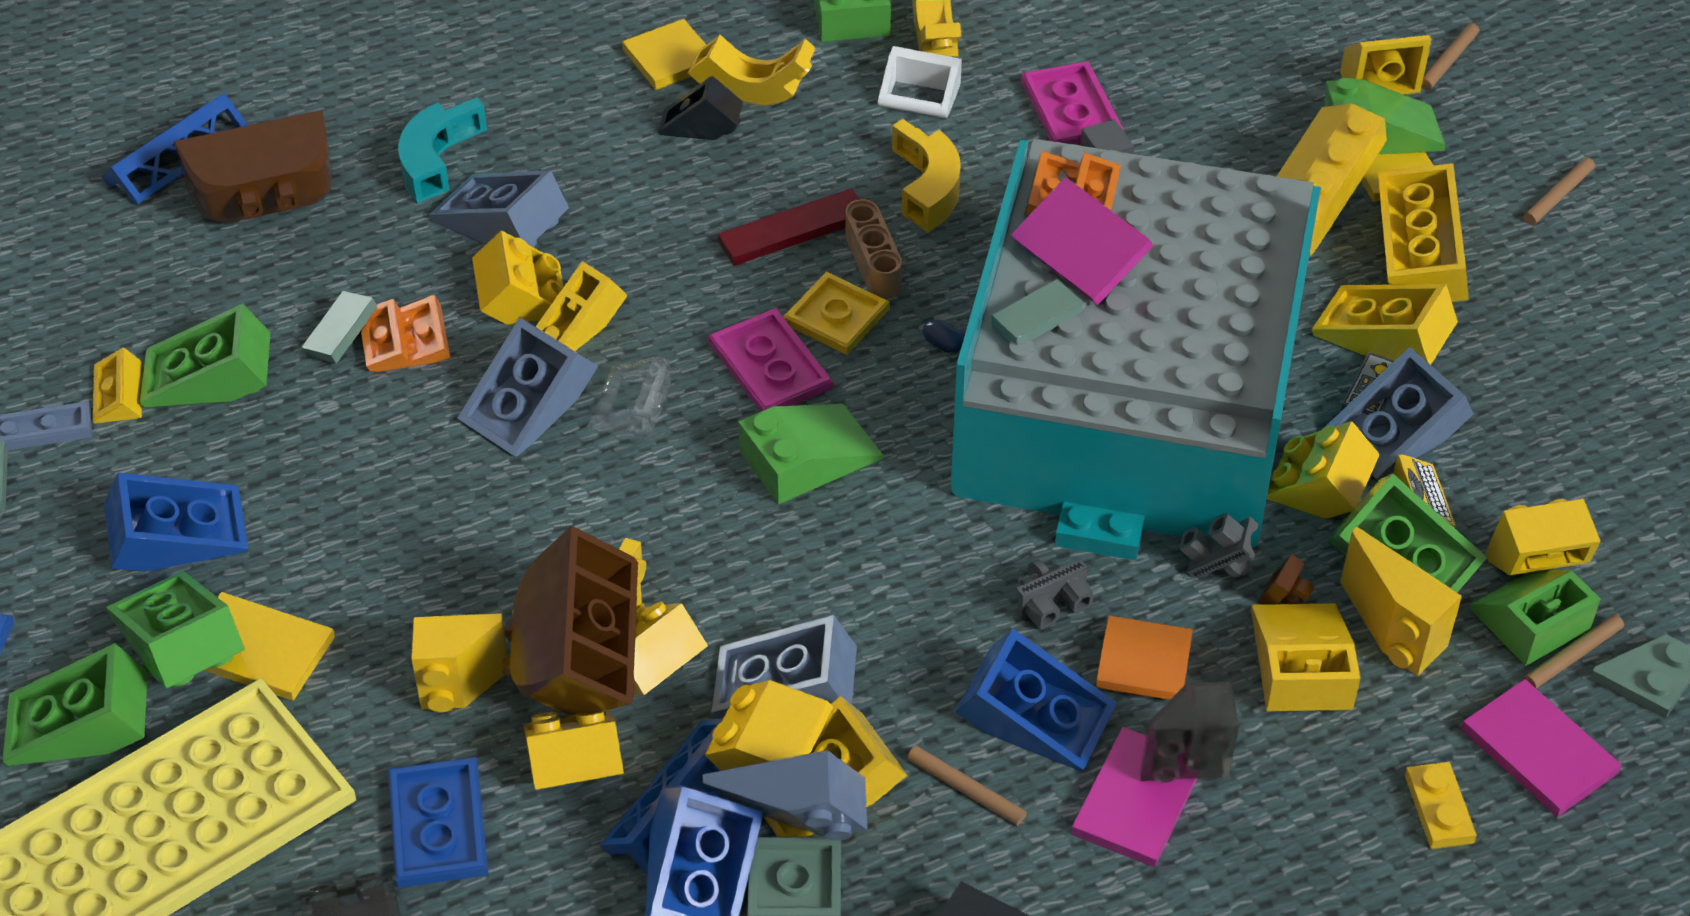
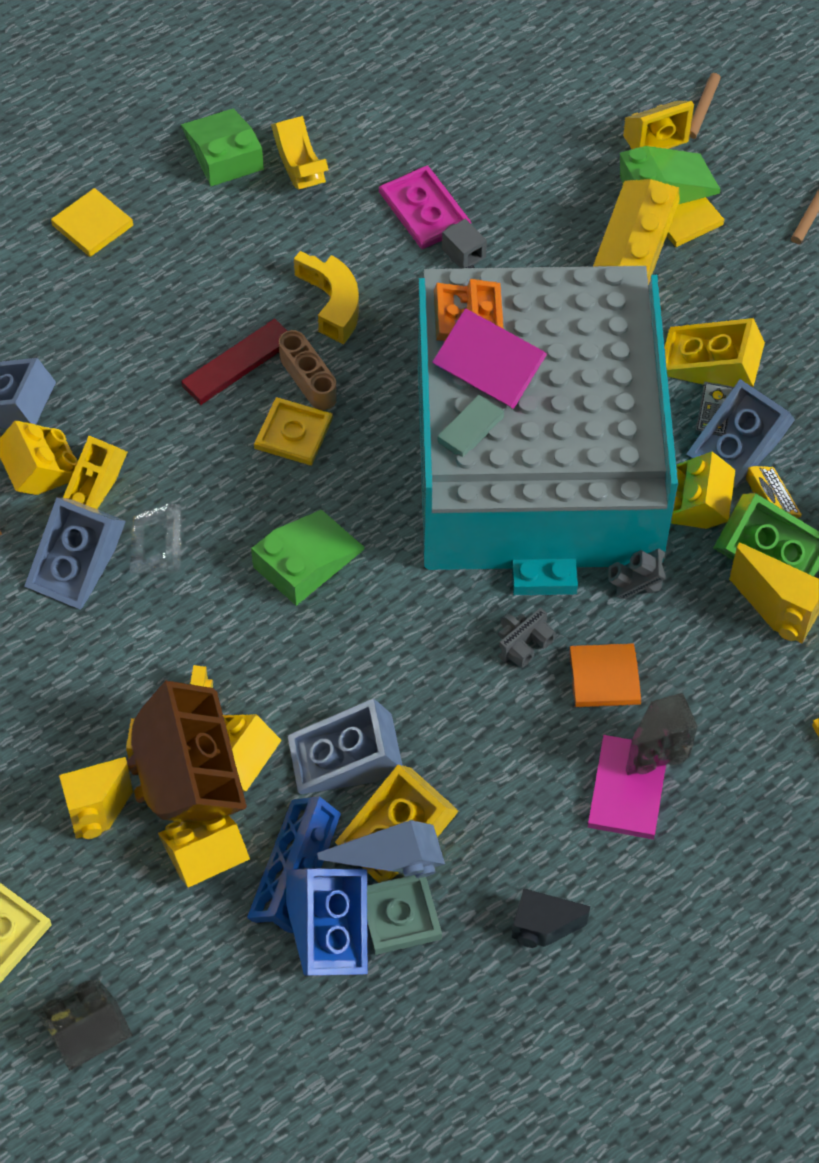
camera: 15 degrees left, 10 degrees up
(437, 822) = (119, 928): blue tile -> none
(703, 112) = (136, 274): black slope -> none
(750, 78) = (166, 235): yellow arch -> none
(767, 725) = (350, 803): yellow slope -> none
(770, 361) = (254, 485): dark pink tile -> none
(921, 70) = (301, 199): white tile -> none
(943, 335) = (386, 435): dark blue arm -> none
(966, 785) = (501, 806): medium nougat bar -> none
(1036, 702) = (535, 730): blue slope -> none
(1286, 584) = (692, 593): reddish brown tile -> none
(1305, 657) = (720, 647): yellow slope -> none
(1423, 228) = (723, 269): yellow slope -> none

